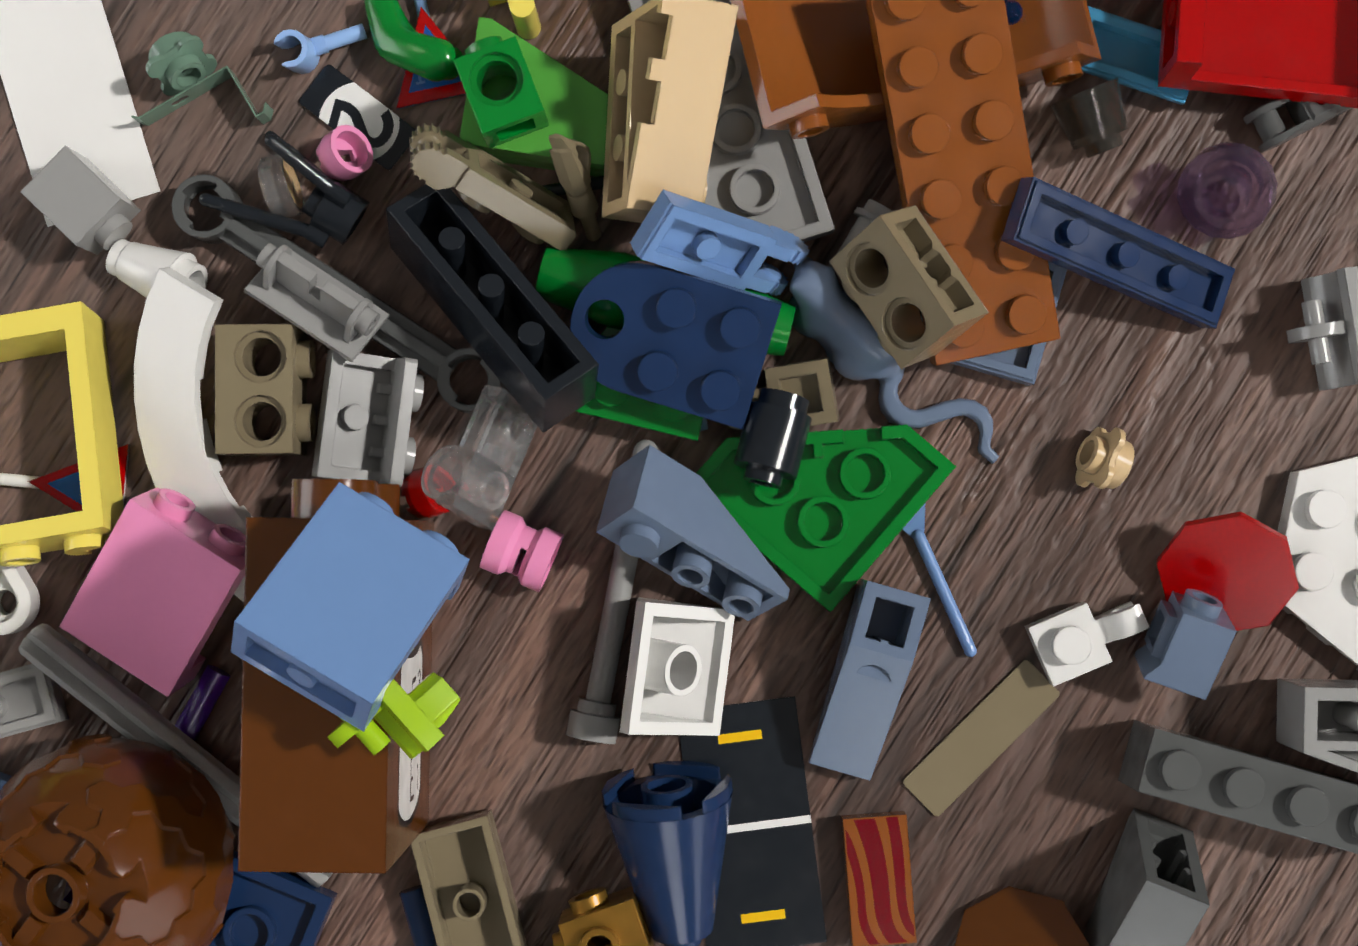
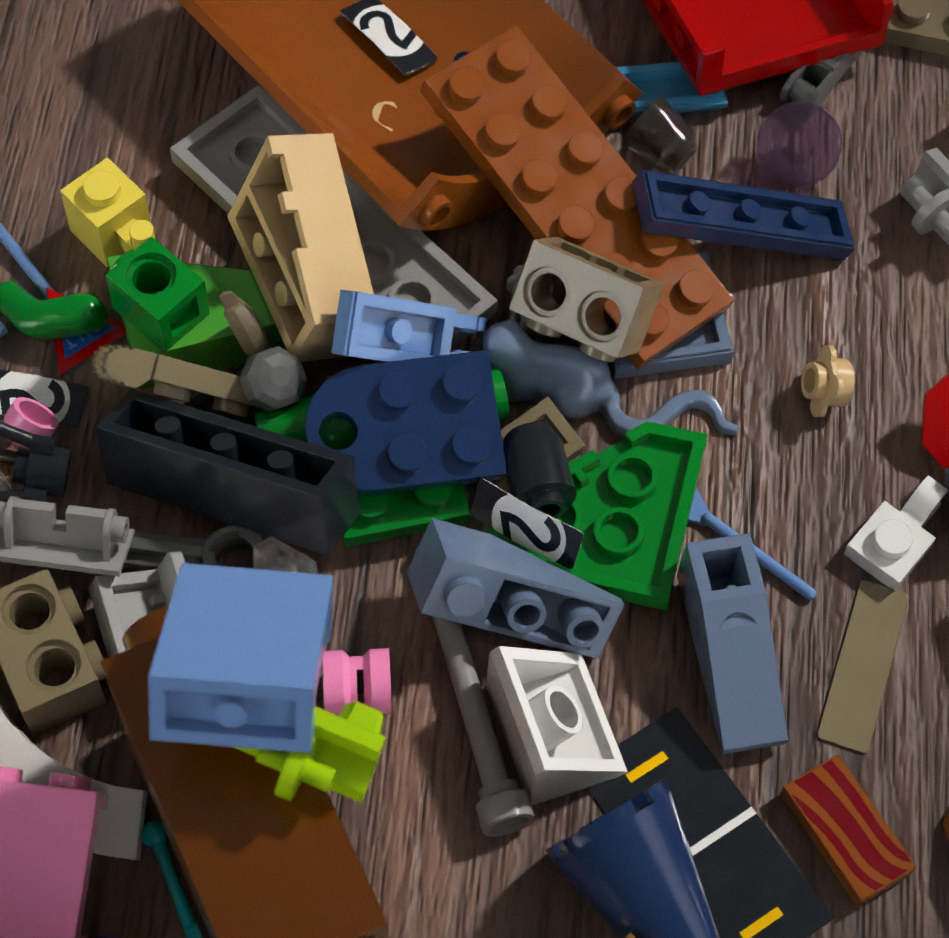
camera: 30 degrees left, 25 degrees down
(572, 230) = (273, 379): none -> dark grey tile
(736, 484) = (526, 525): none -> sticker

